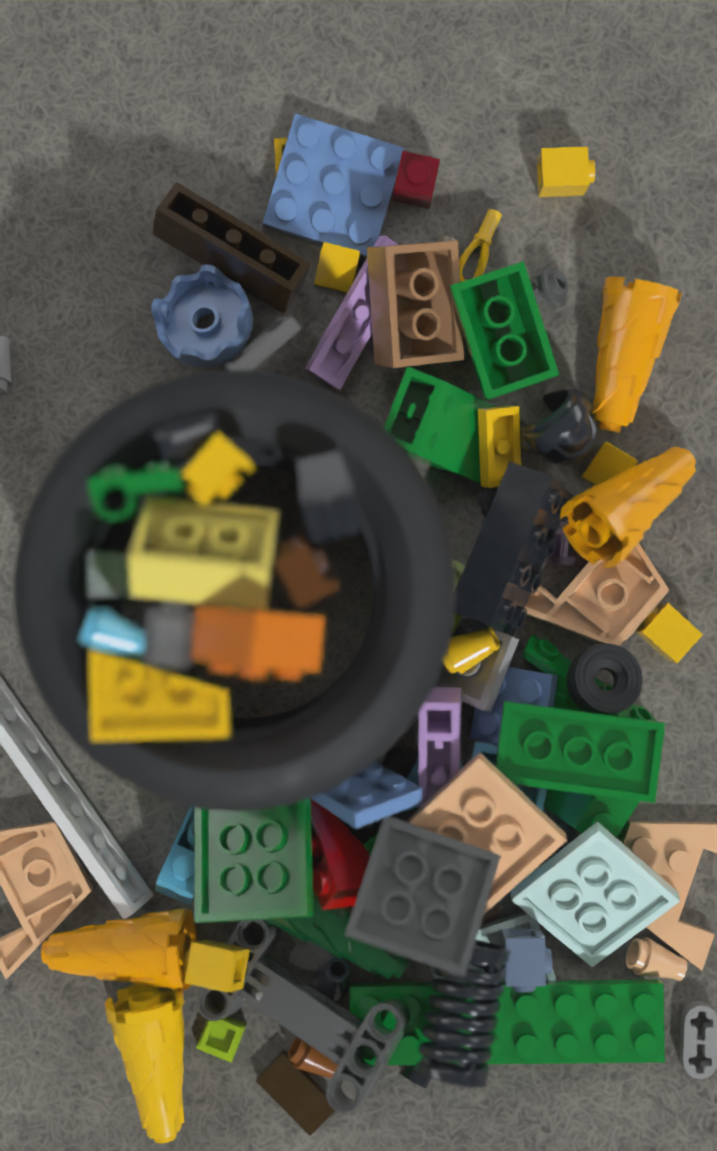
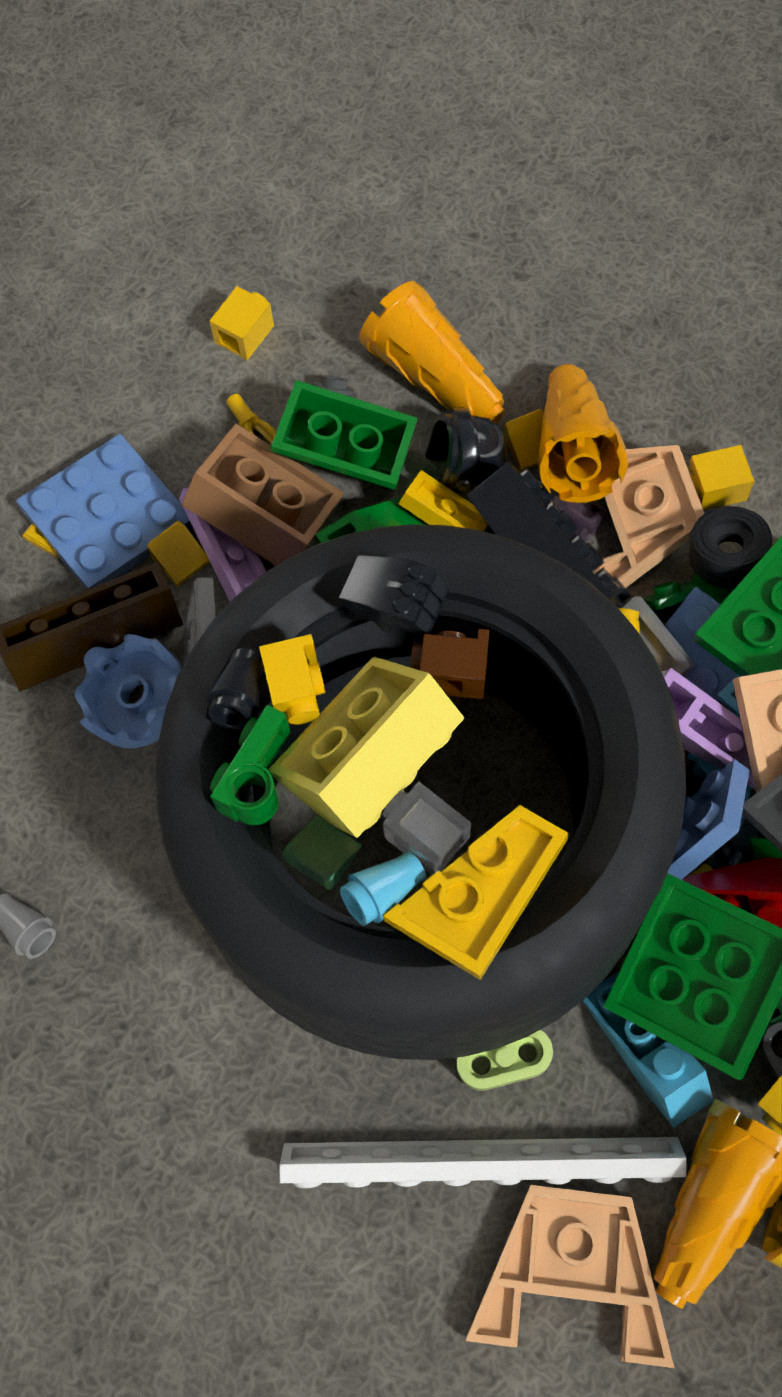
camera: 50 degrees left, 20 degrees down
(257, 642) = (484, 738): orange brick -> none
(416, 179) = (155, 437): dark red brick -> none

